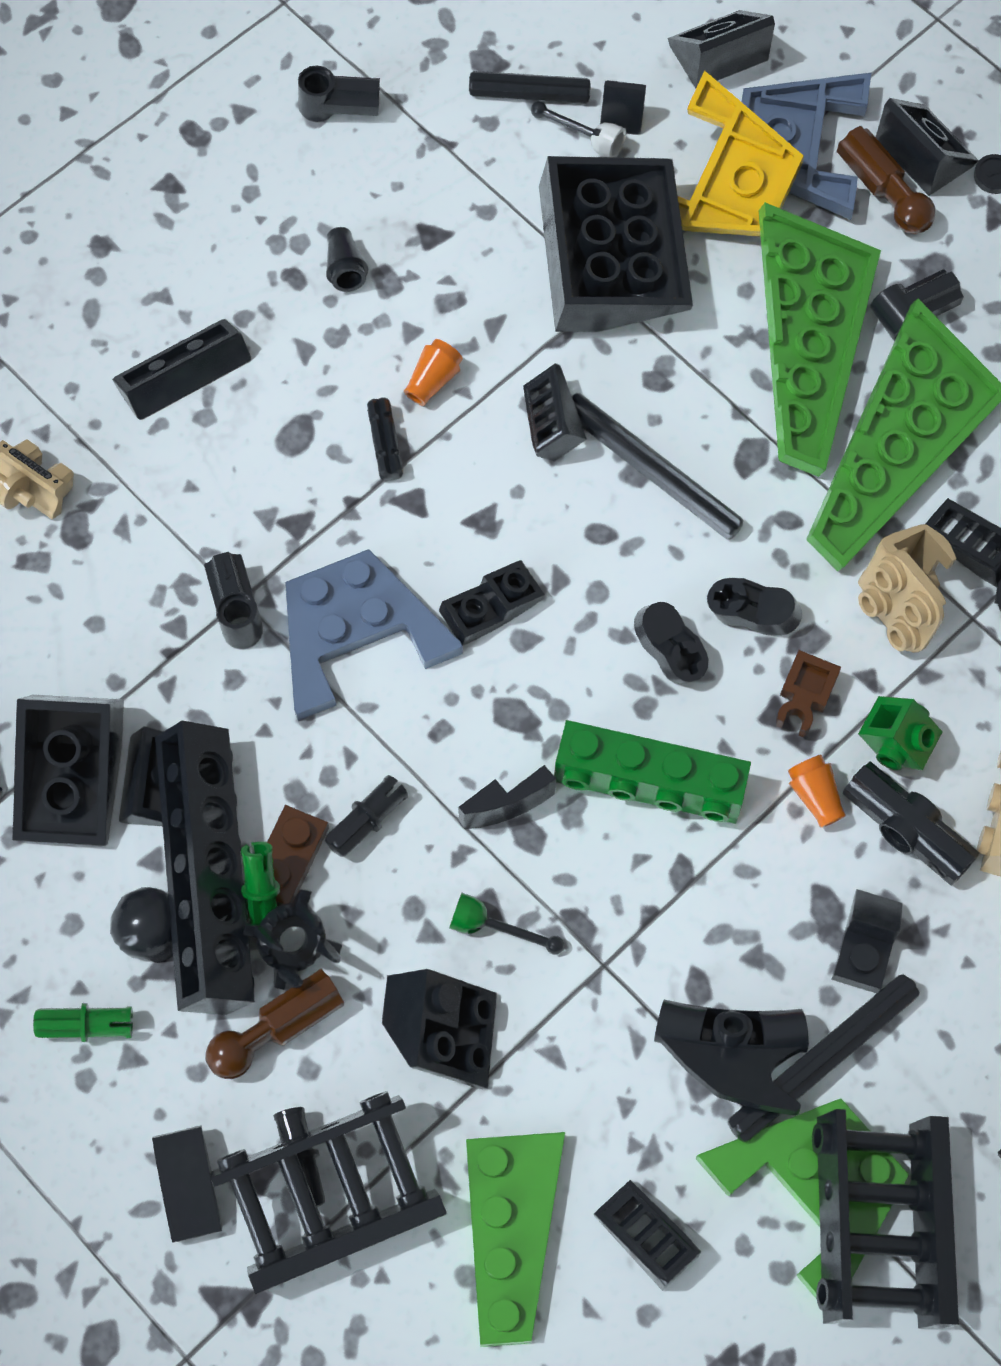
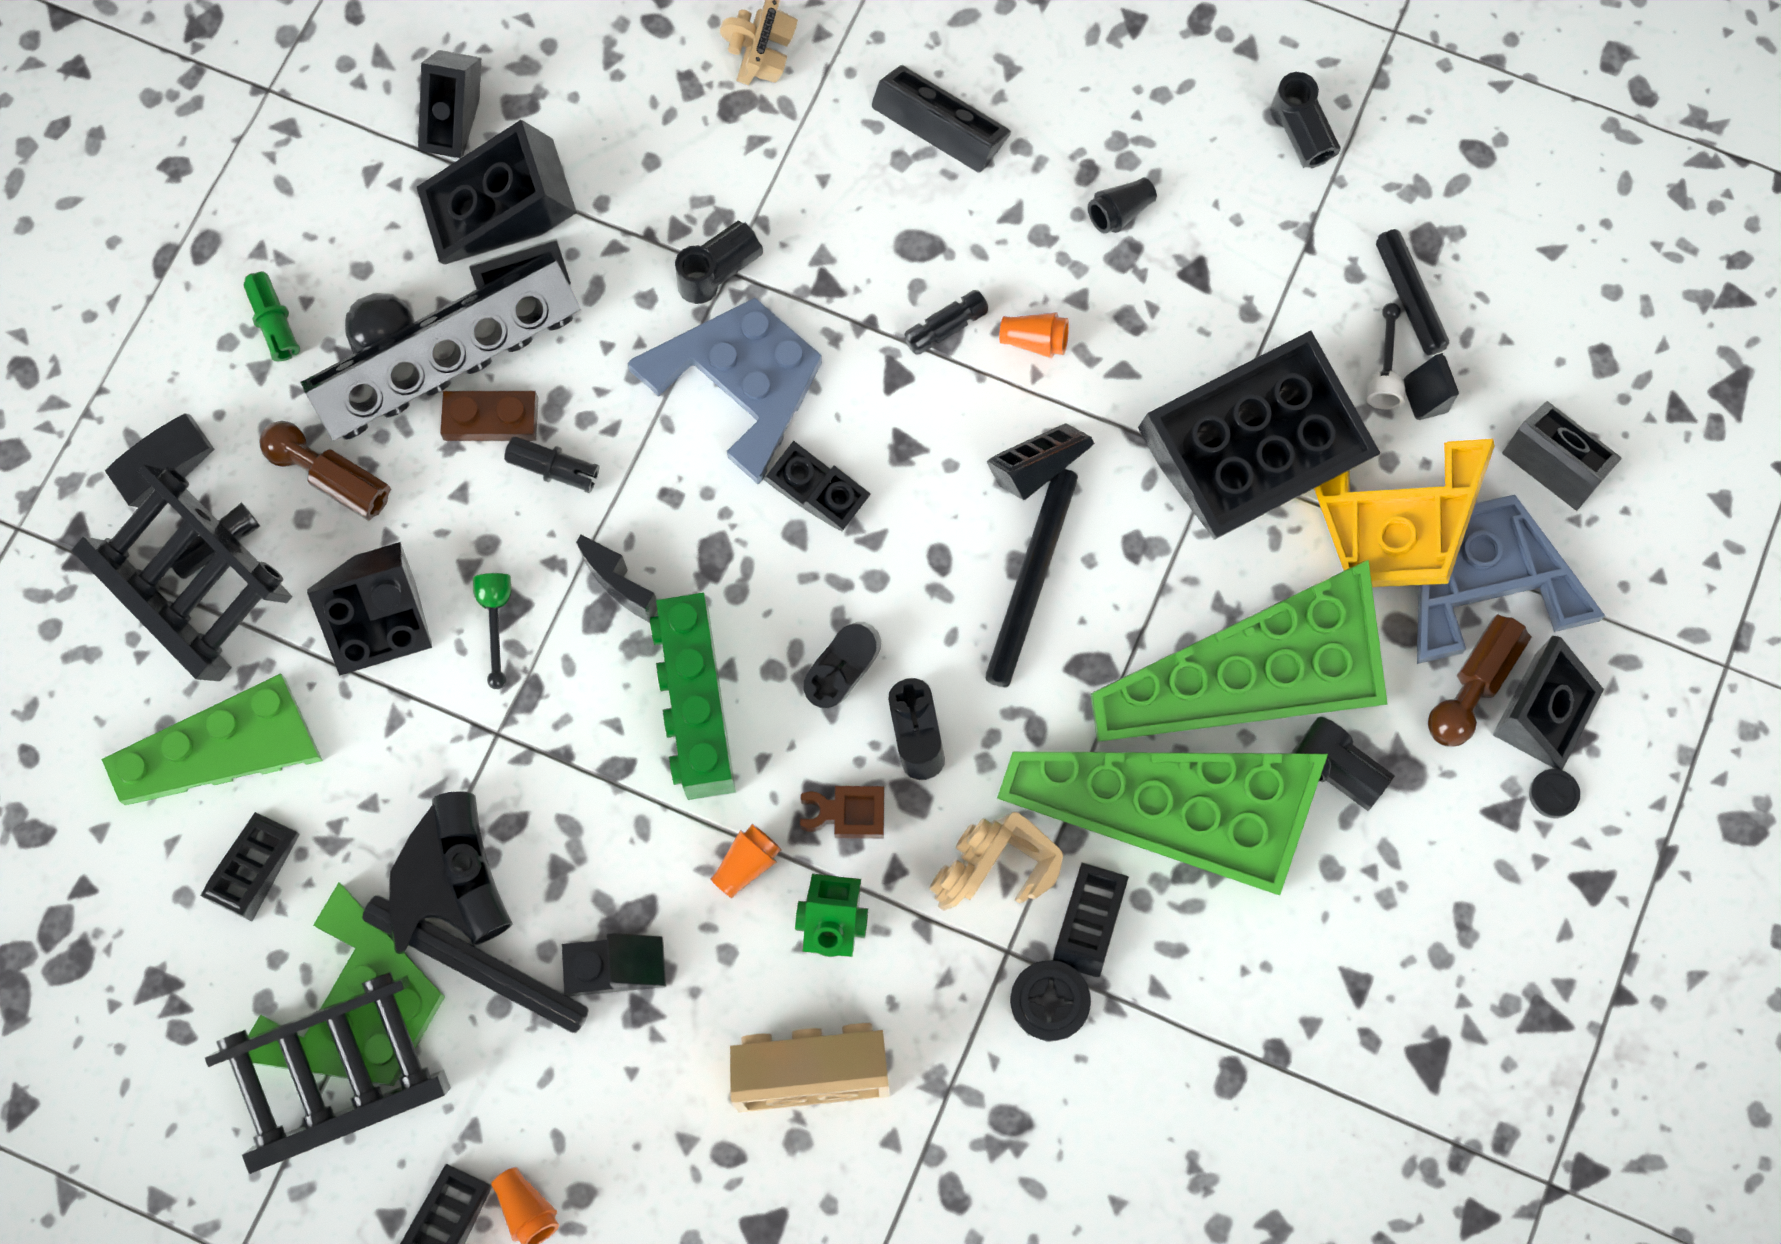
camera: 70 degrees right, 5 degrees up
(260, 883) = (436, 399): green axle -> none
(289, 963) = (425, 444): black piece -> none
(910, 823) = (746, 962): black piece -> none

